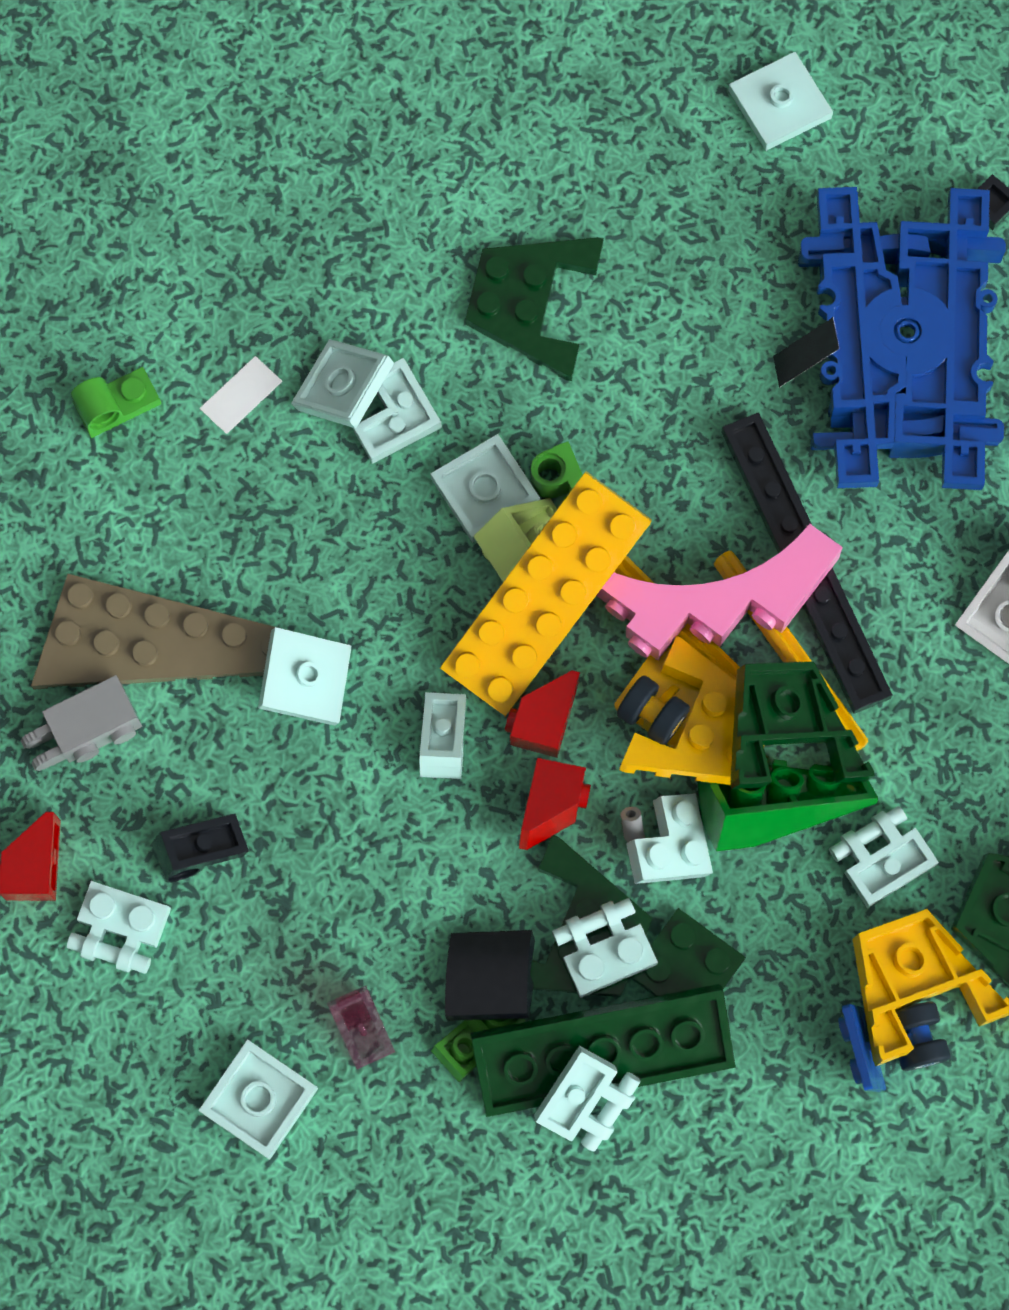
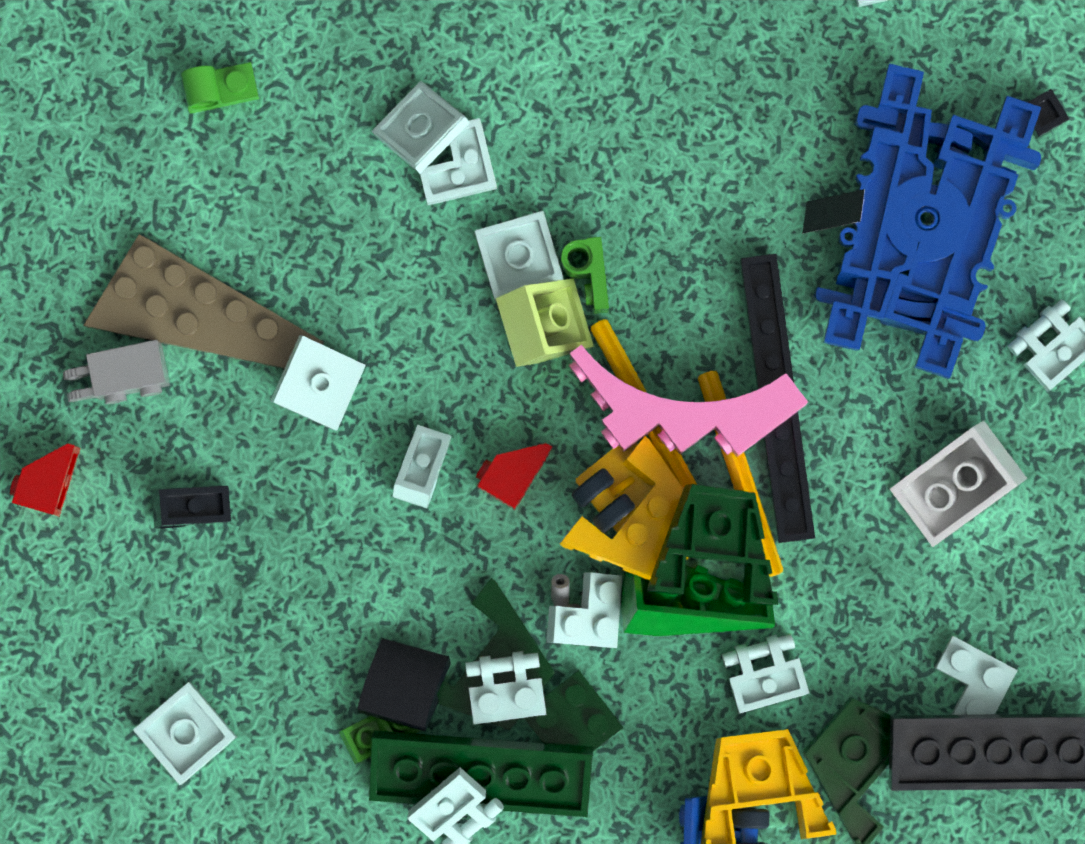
camera: 15 degrees right, 10 degrees up
(122, 915) = (113, 546): light aqua plate -> none
(241, 395) = (330, 109): white sticker -> none
(361, 1027) = (285, 698): clear pink slope -> none
(514, 294) = (594, 83): dark green wing -> none
(546, 593) = (541, 371): yellow plate -> none
(553, 800) = (498, 550): red slope -> none

